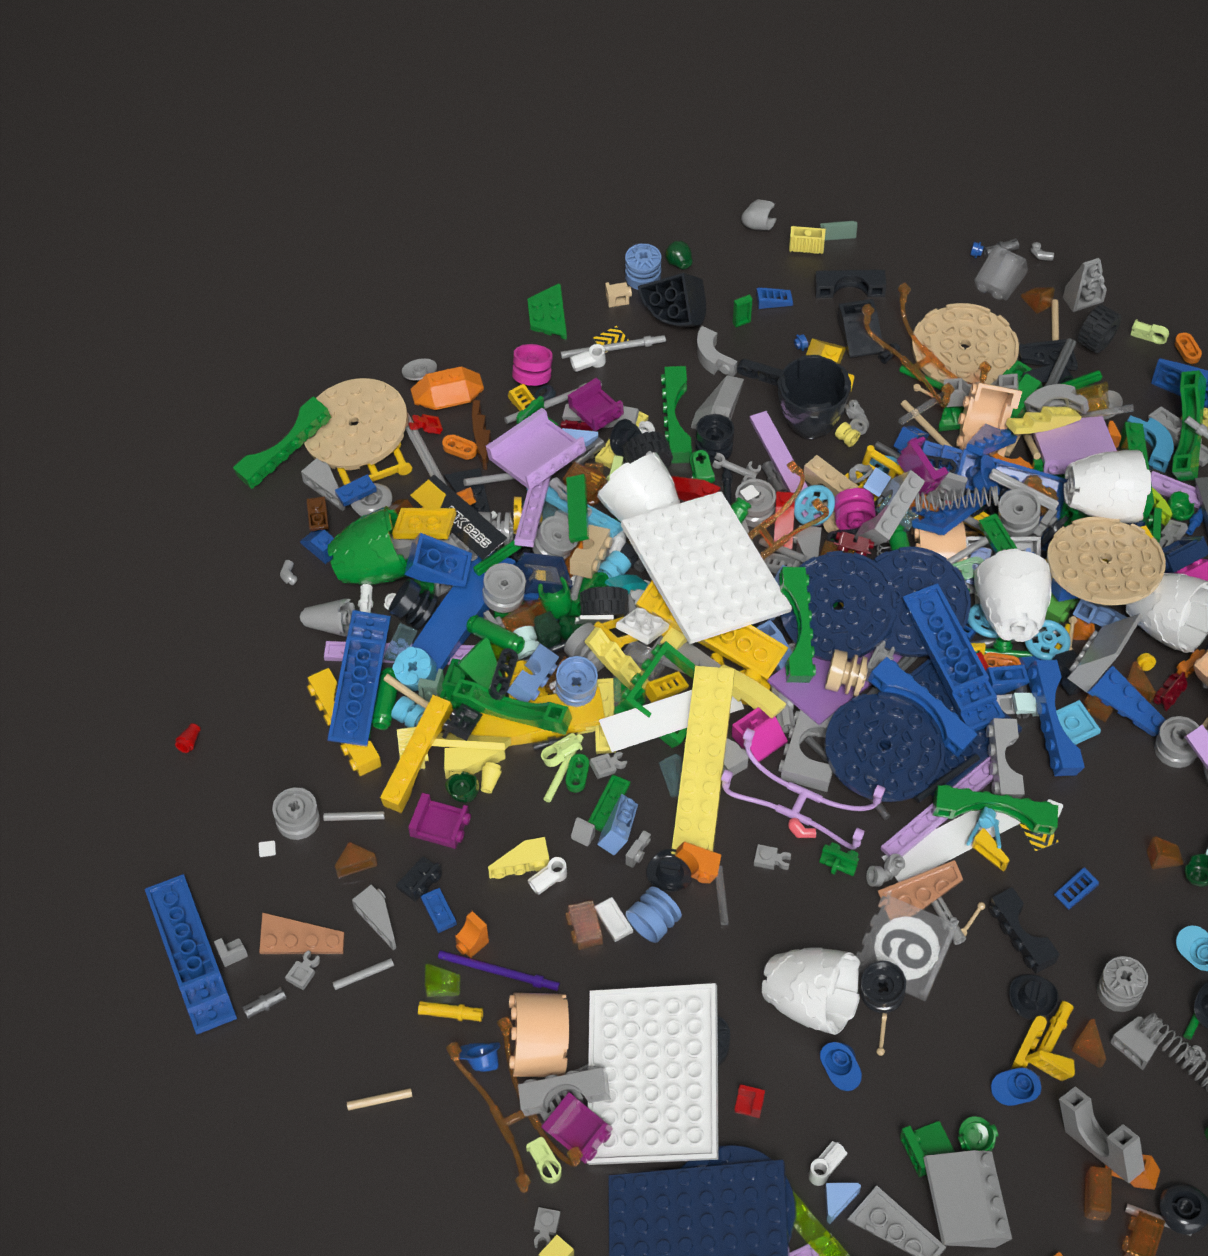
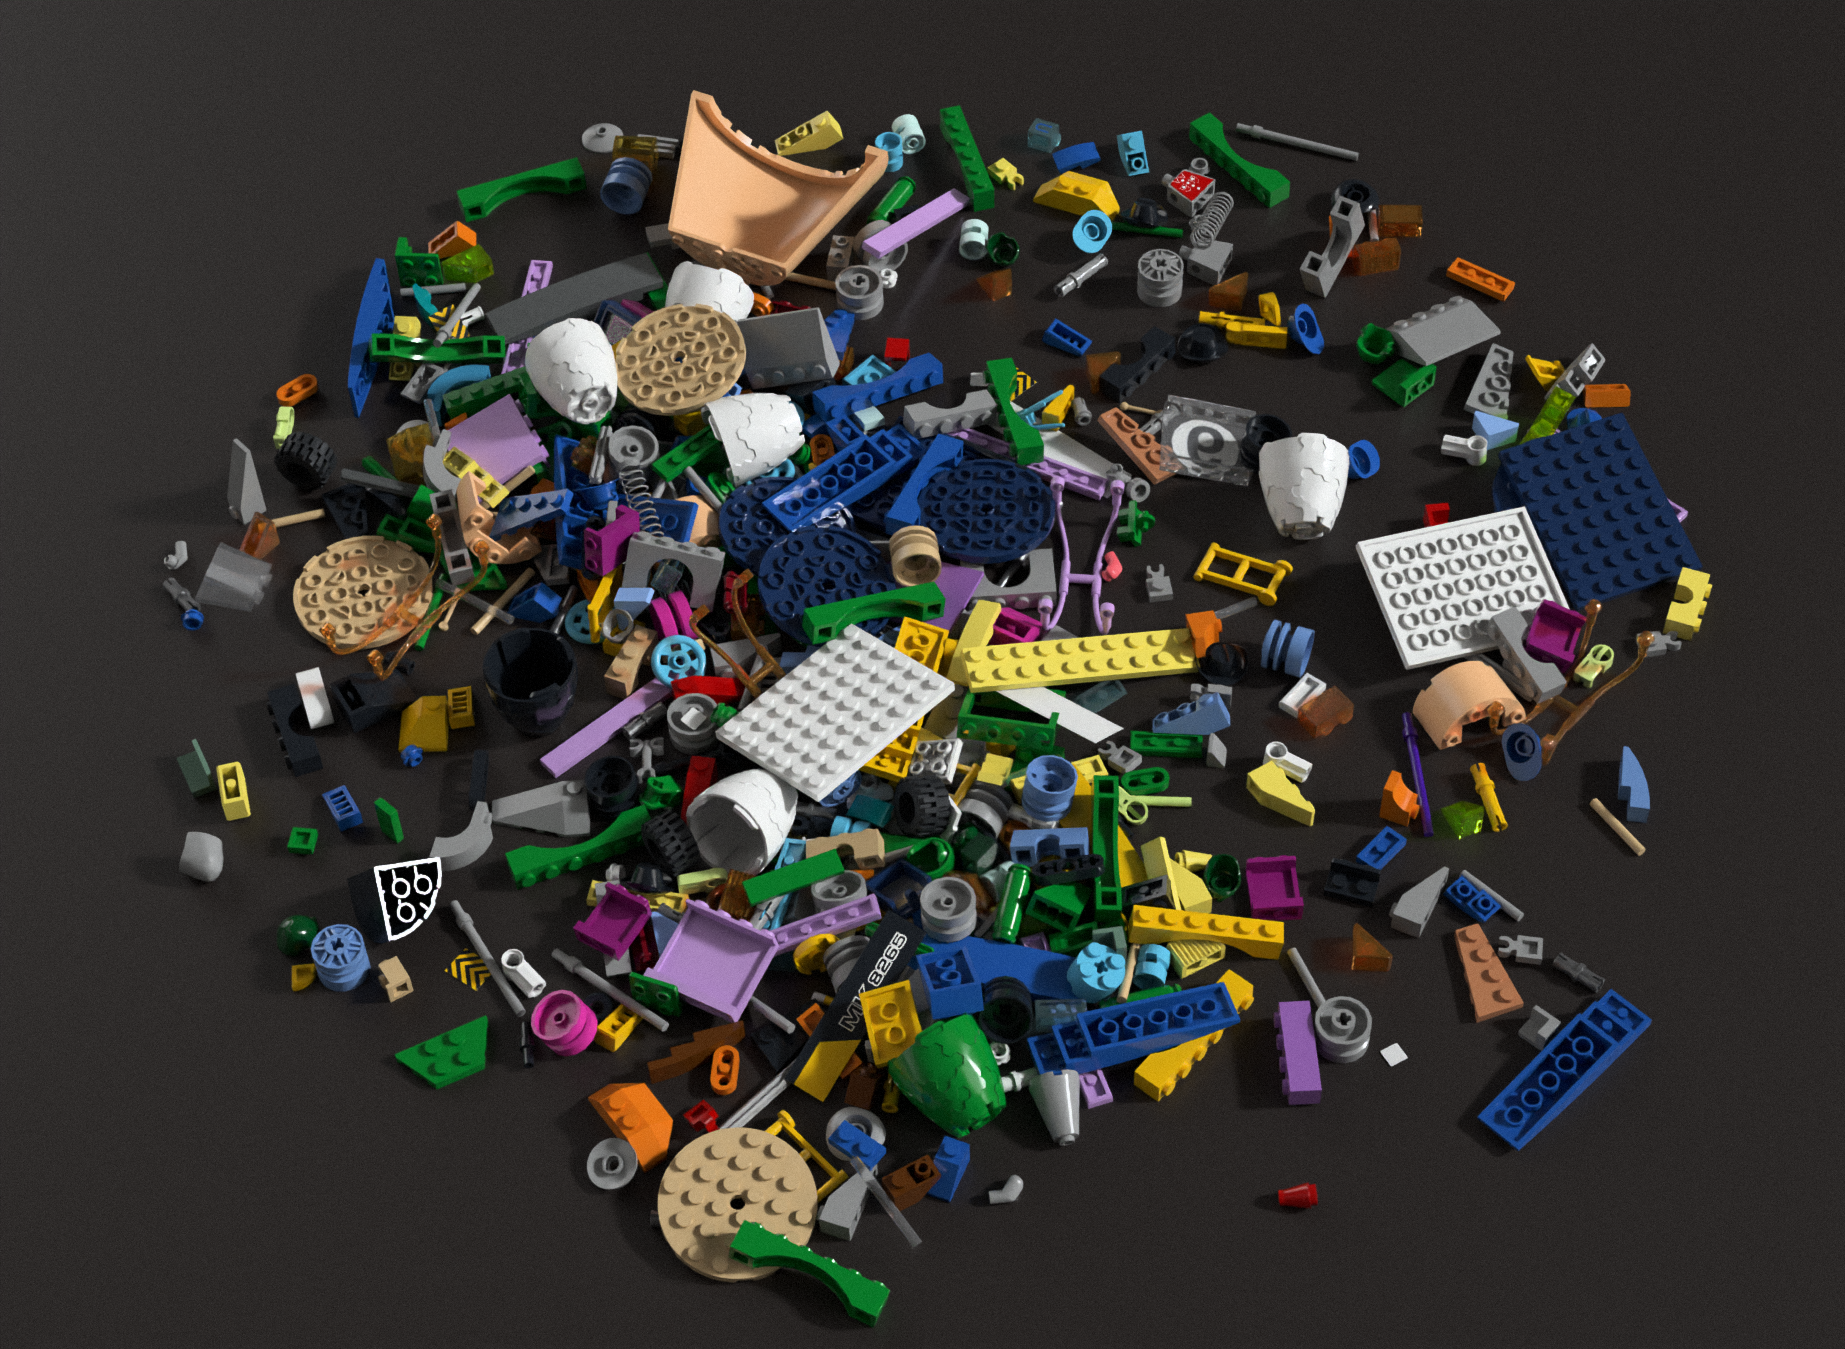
camera: 110 degrees left, 5 degrees down
(286, 774) = (1298, 1052): none -> medium lavender brick
(302, 502) = (885, 1201): none -> clear bar
(365, 957) = (1471, 901): none -> blue slope
(407, 1125) = (1633, 787): none -> medium blue slope
(747, 953) = (1265, 596): none -> yellow piece
(753, 271) = (302, 840): none -> green plate
(884, 299) = (314, 698): none -> white beam
(983, 867) = (1082, 415): none -> light grey pin
(1029, 895) = (1097, 364): none -> clear orange slope
(1098, 746) = (896, 350): none -> red panel
(1148, 919) = (1074, 280): none -> light grey pin
(1194, 778) = (888, 278): none -> white plate

